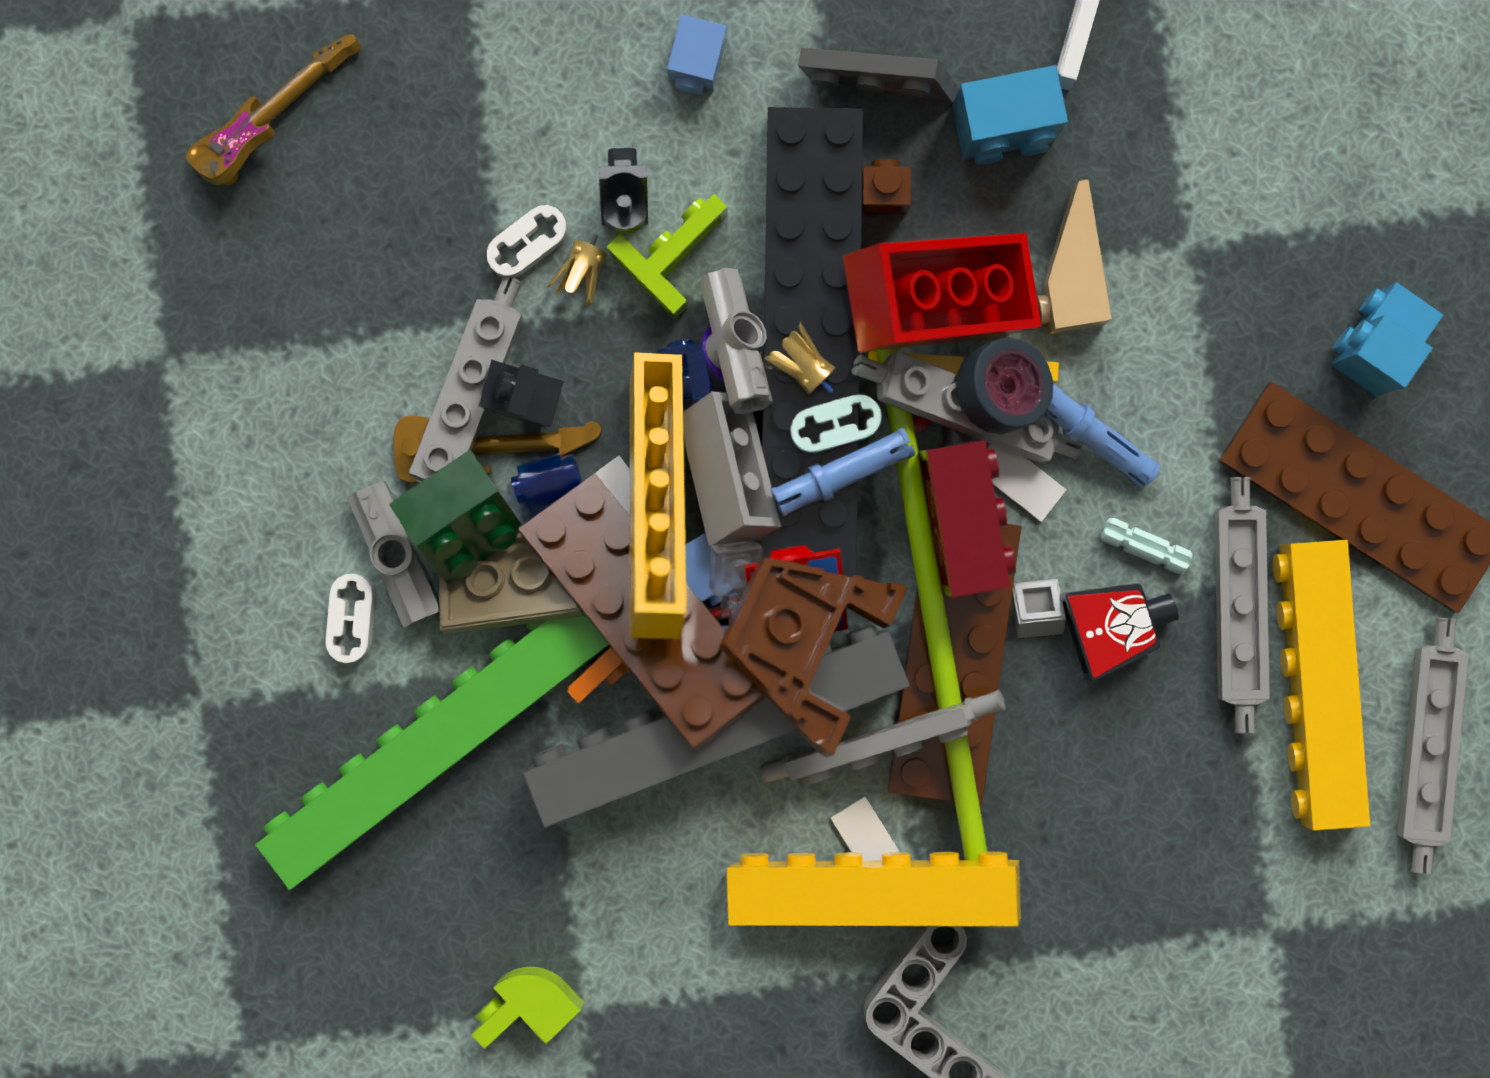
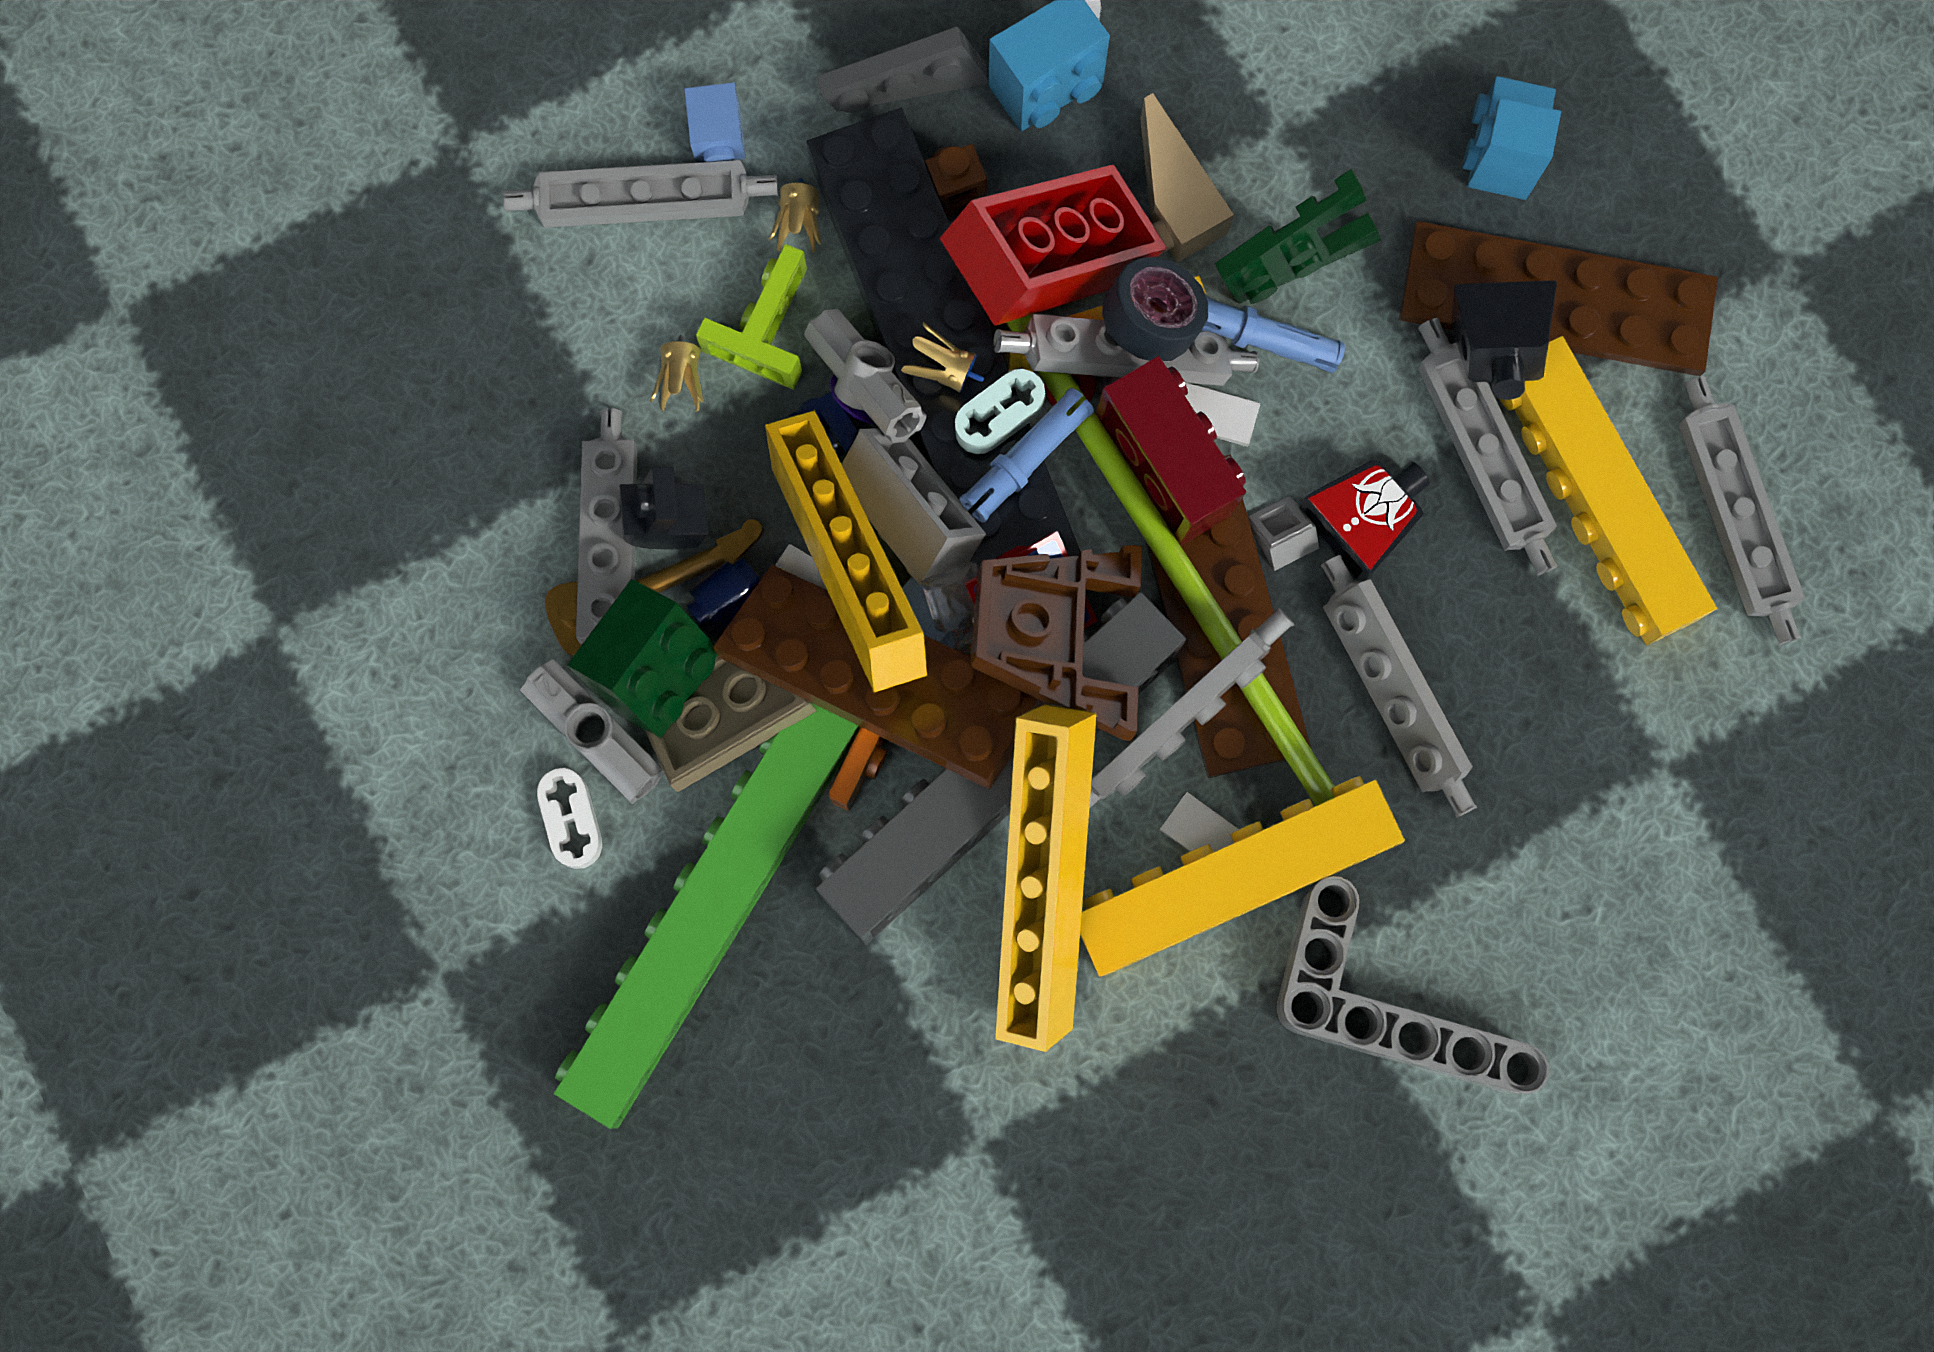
camera: 20 degrees left, 10 degrees down
(224, 151) = (267, 393): pearl gold piece -> none
(520, 232) = (603, 361): white beam -> none
(536, 997) = (919, 1142): lime brick -> none
(609, 91) = (641, 193): none -> light grey plate
(623, 191) = (692, 275): black hips -> none
(714, 834) = (1045, 875): none -> yellow brick
(740, 158) = (798, 206): none -> pearl gold piece
(1075, 780) = (1397, 686): none -> light grey plate
(1146, 546) = (1364, 427): light aqua axle -> none
(1152, 377) = (1296, 249): none -> dark green wing
(1296, 521) = (1503, 332): none -> black torso

